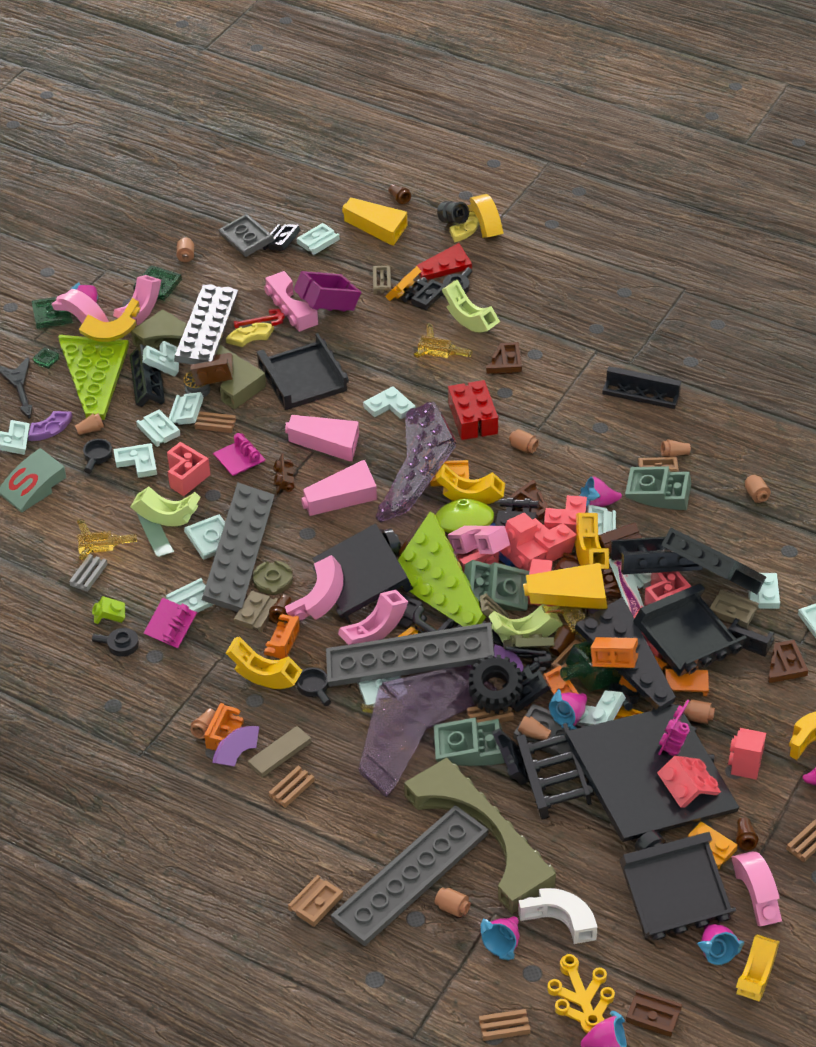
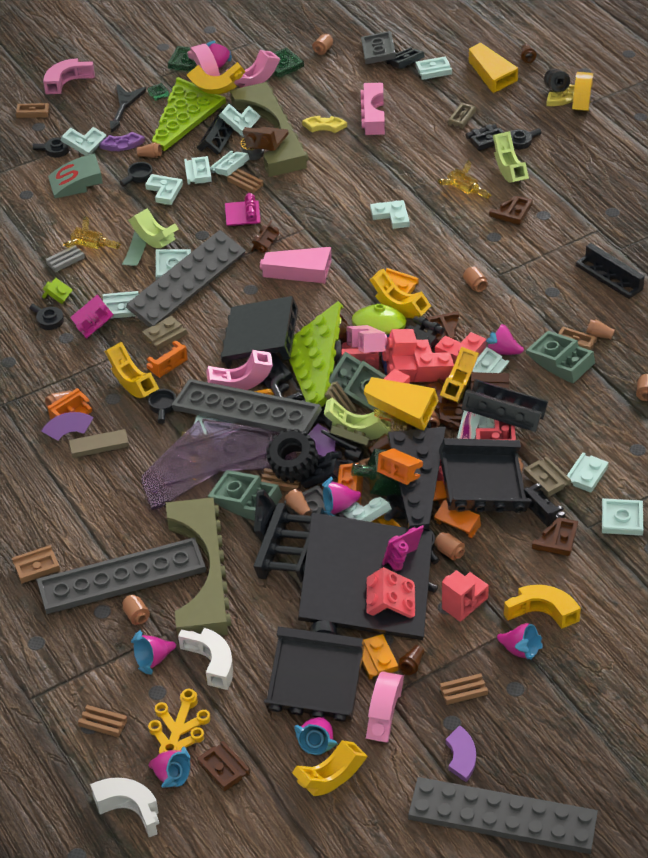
camera: 30 degrees right, 0 degrees up
(186, 468) = (192, 208): coral brick -> none
(206, 325) = (289, 103): plate -> none
(272, 577) = (197, 312): olive tile -> none
(278, 316) = (356, 115): red piece -> none
(279, 608) = (182, 336): reddish brown cone -> none
(288, 784) = (87, 472): medium nougat tile -> none
(303, 374) = (340, 167): black panel -> none
(324, 435) = (319, 219): bright pink slope -> none
(324, 594) = (217, 335): bright pink arch -> none
(327, 291) = (401, 108): magenta piece -> none
(392, 540) = (303, 317): black piece -> none
(406, 282) = (471, 123): light orange plate -> none
(428, 447) = (382, 256): clear purple wing -> none
(445, 263) = (522, 119): wing -> none
(471, 405) = (452, 234): red piece -> none
(714, 560) = (543, 422): black panel -> none

